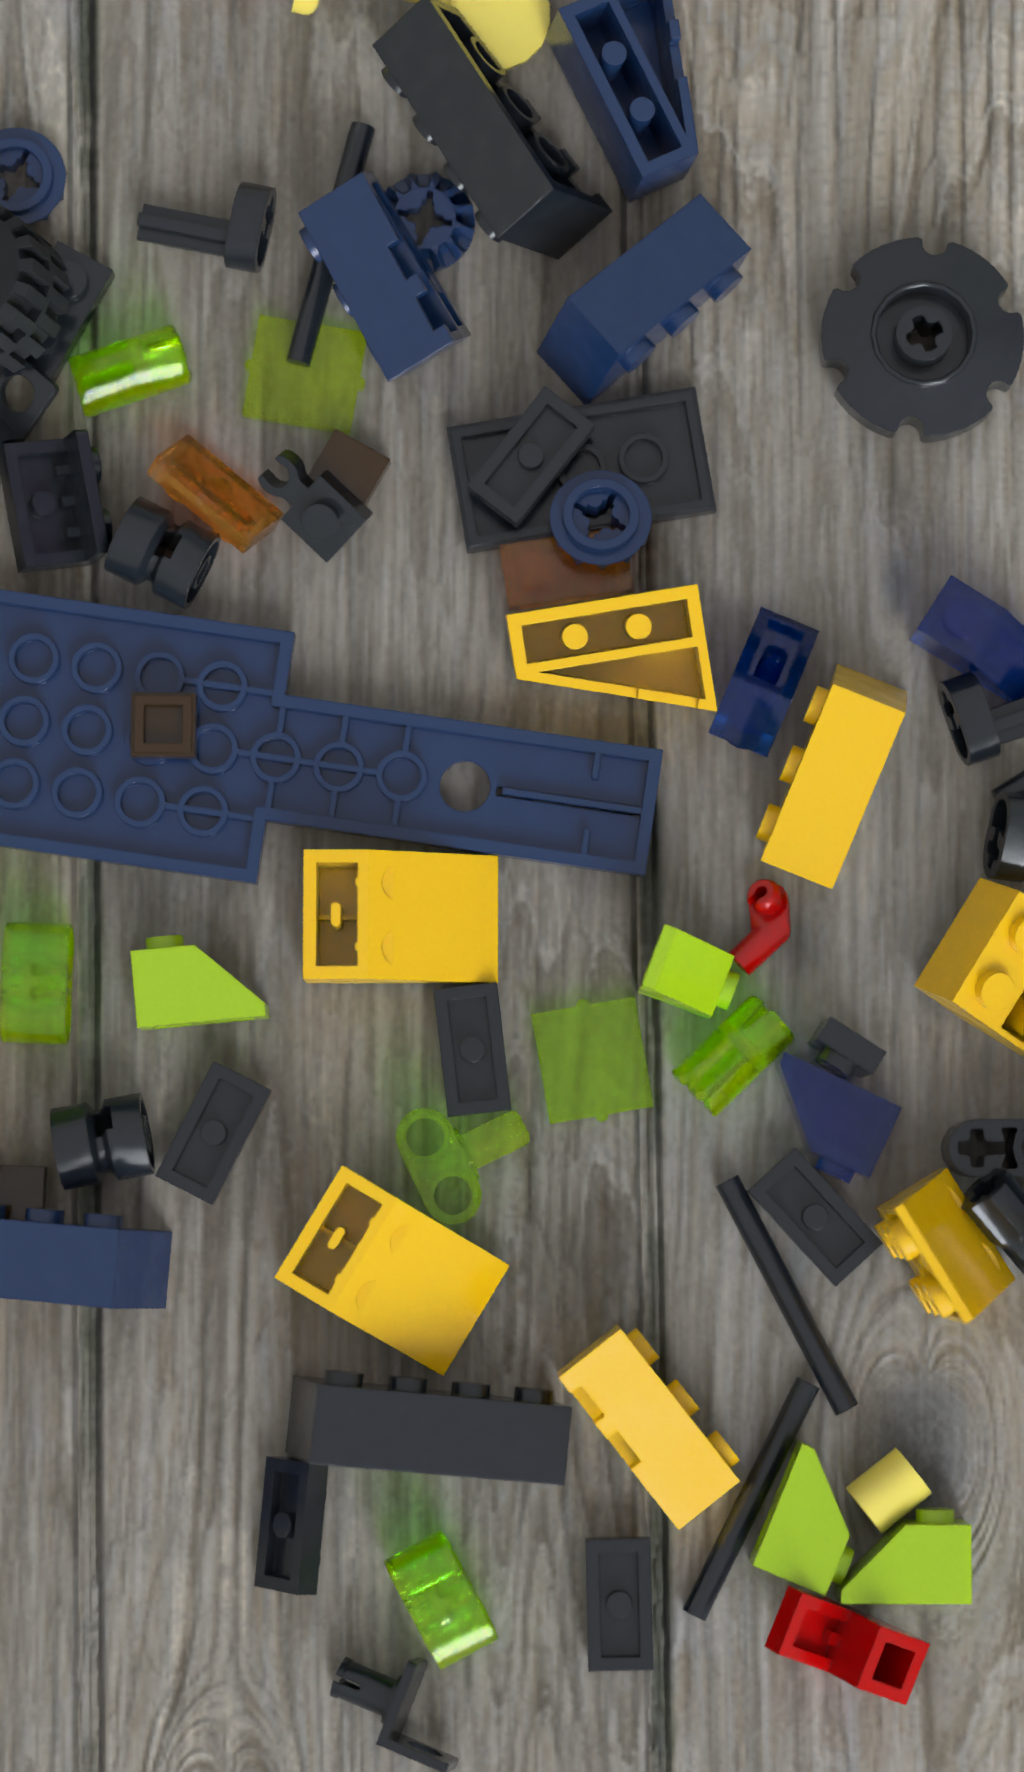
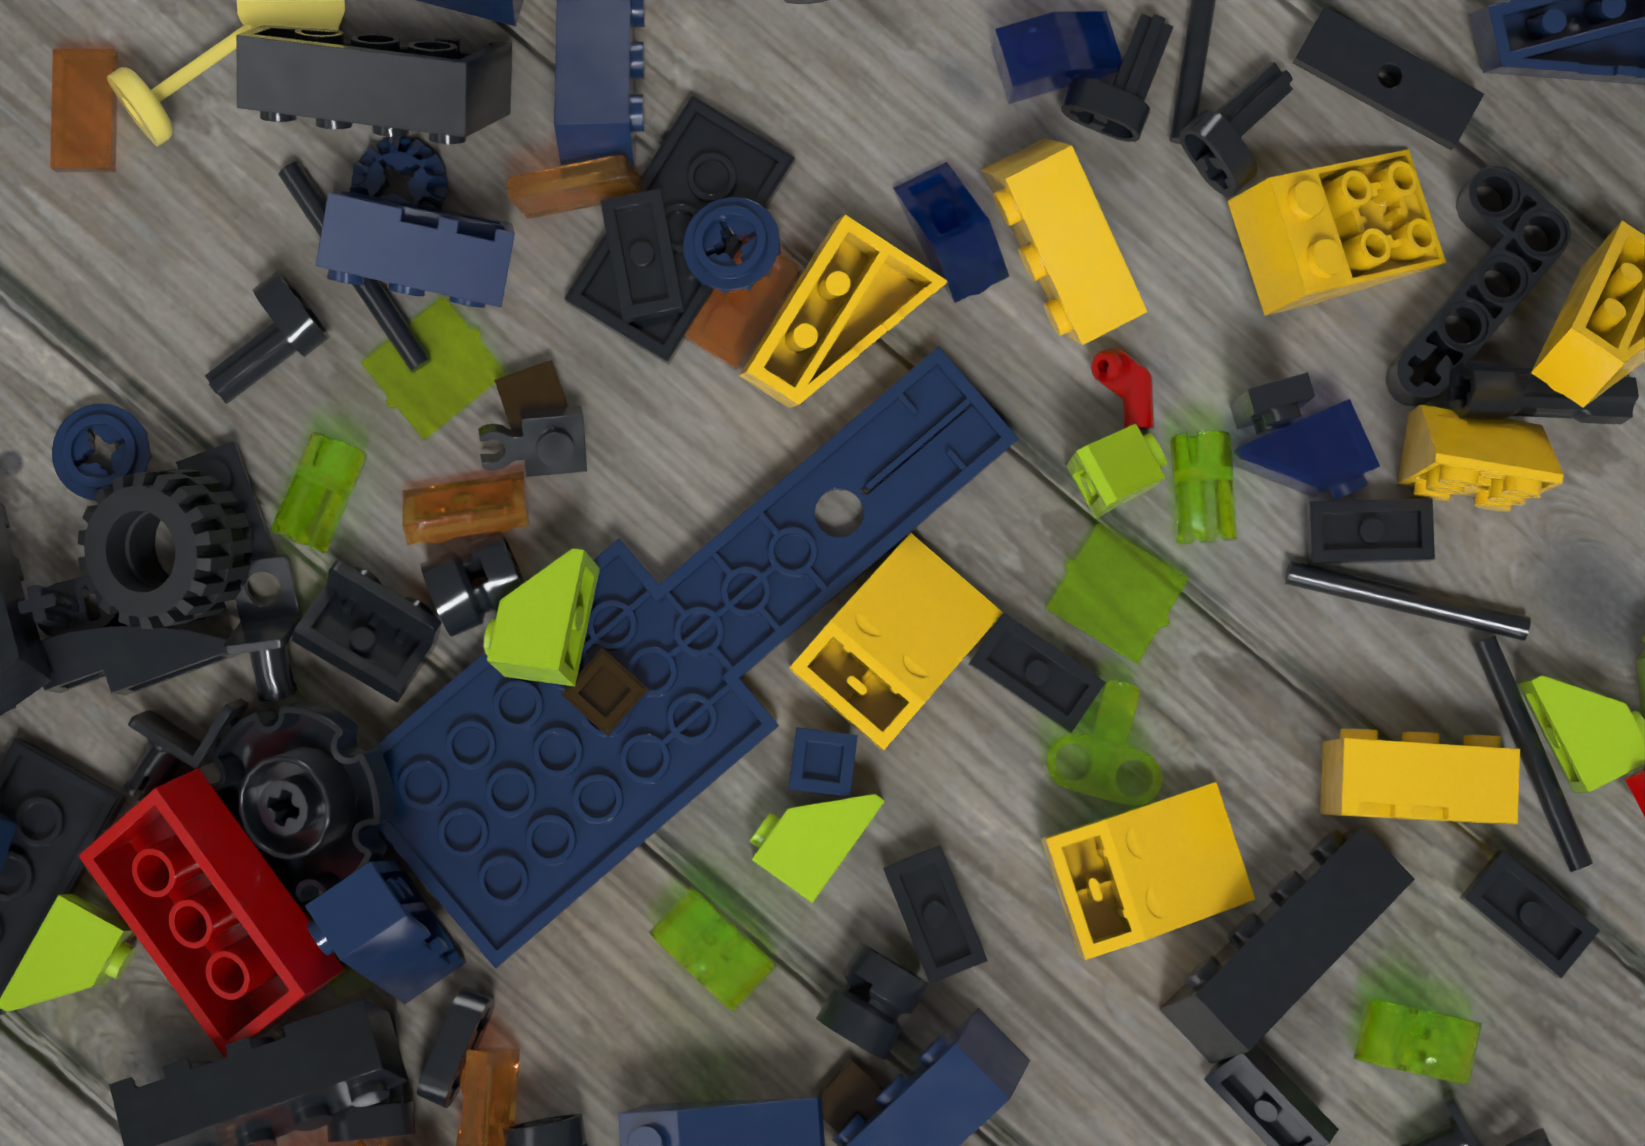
camera: 50 degrees left, 0 degrees up
(176, 631) = (545, 622): none -> lime slope
(255, 941) = (823, 762): none -> dark blue tile
(539, 356) = (573, 186): none -> clear orange tile
(888, 1490) = (1612, 648): light yellow beam -> none

